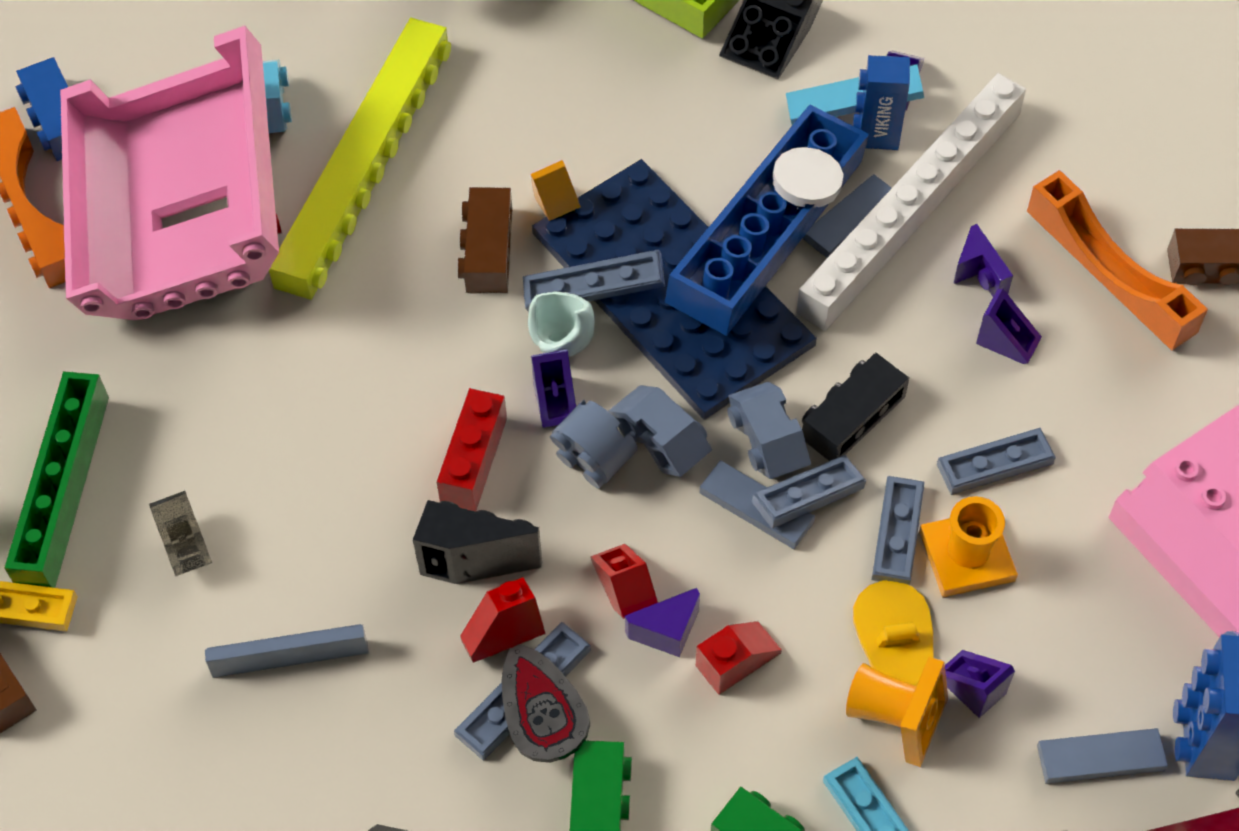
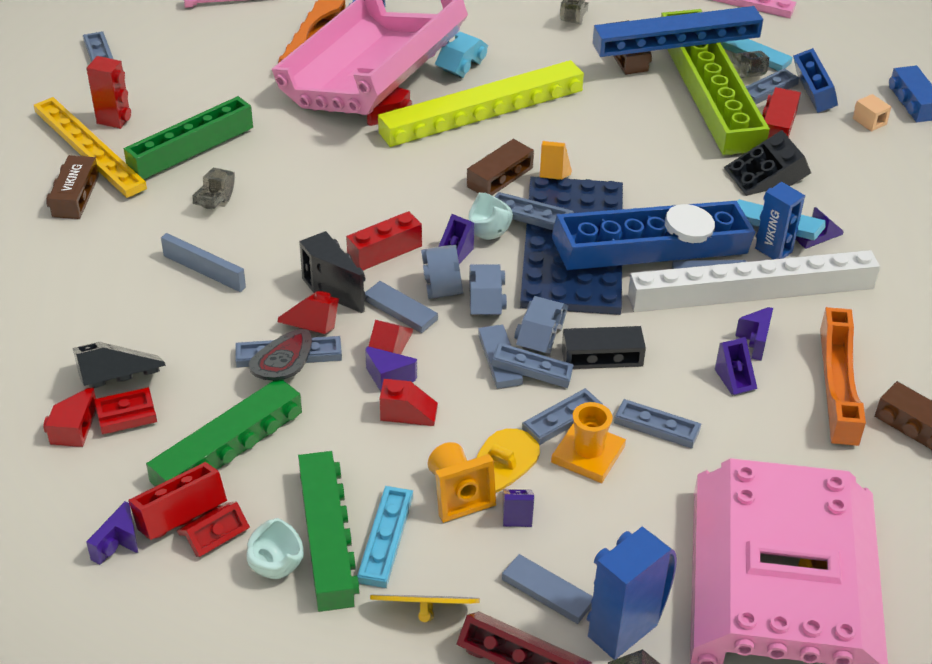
camera: 40 degrees right, 15 degrees down
(584, 523) = (401, 306): none -> sand blue tile

